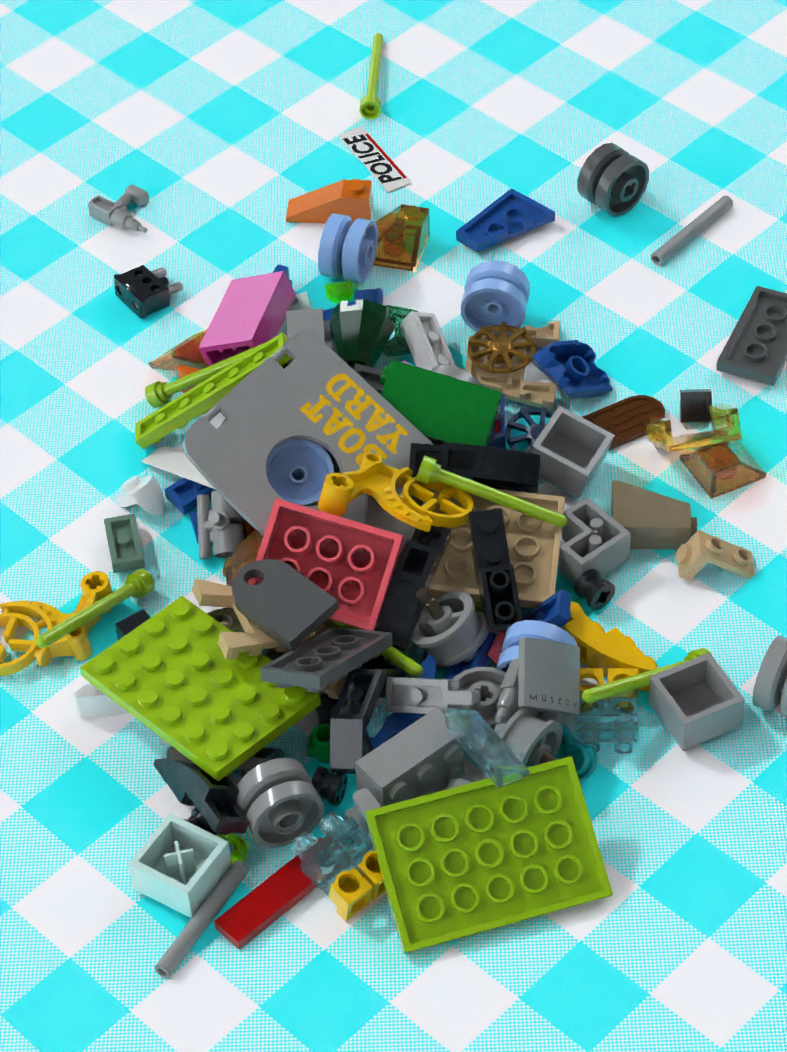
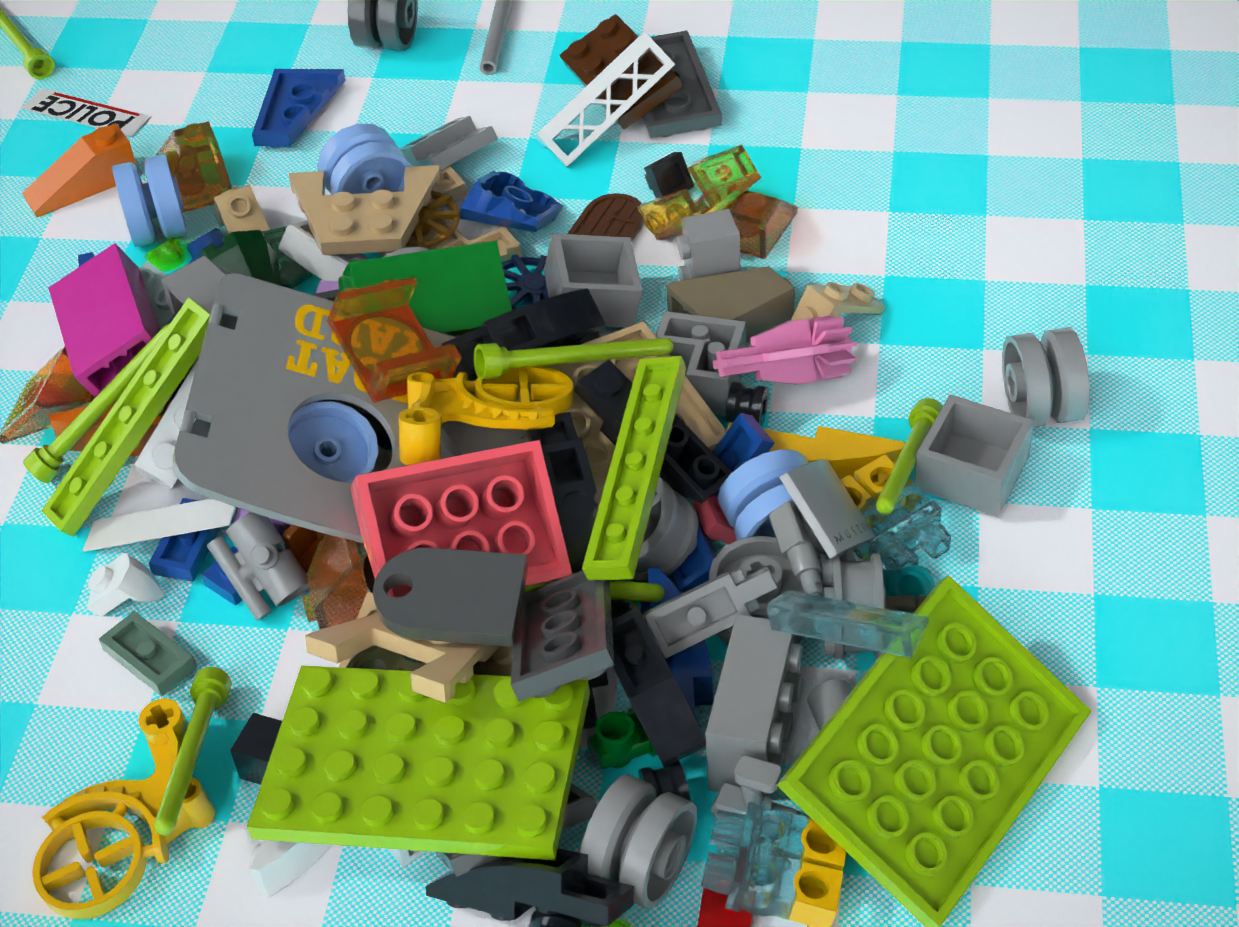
camera: 35 degrees left, 0 degrees up
(380, 421) = (386, 338): none -> clear yellow panel
(399, 286) = (239, 210): none -> tan bracket
(451, 584) = (634, 470): none -> lime plate
(464, 334) = (364, 220): none -> tan wing
(575, 304) = (448, 143): none -> light grey slope
(644, 570) = (793, 352): none -> bright pink piece
(660, 469) = (709, 245): none -> light grey brick
(695, 315) = (595, 89): none -> white fence
(734, 308) = (599, 48): none -> reddish brown plate

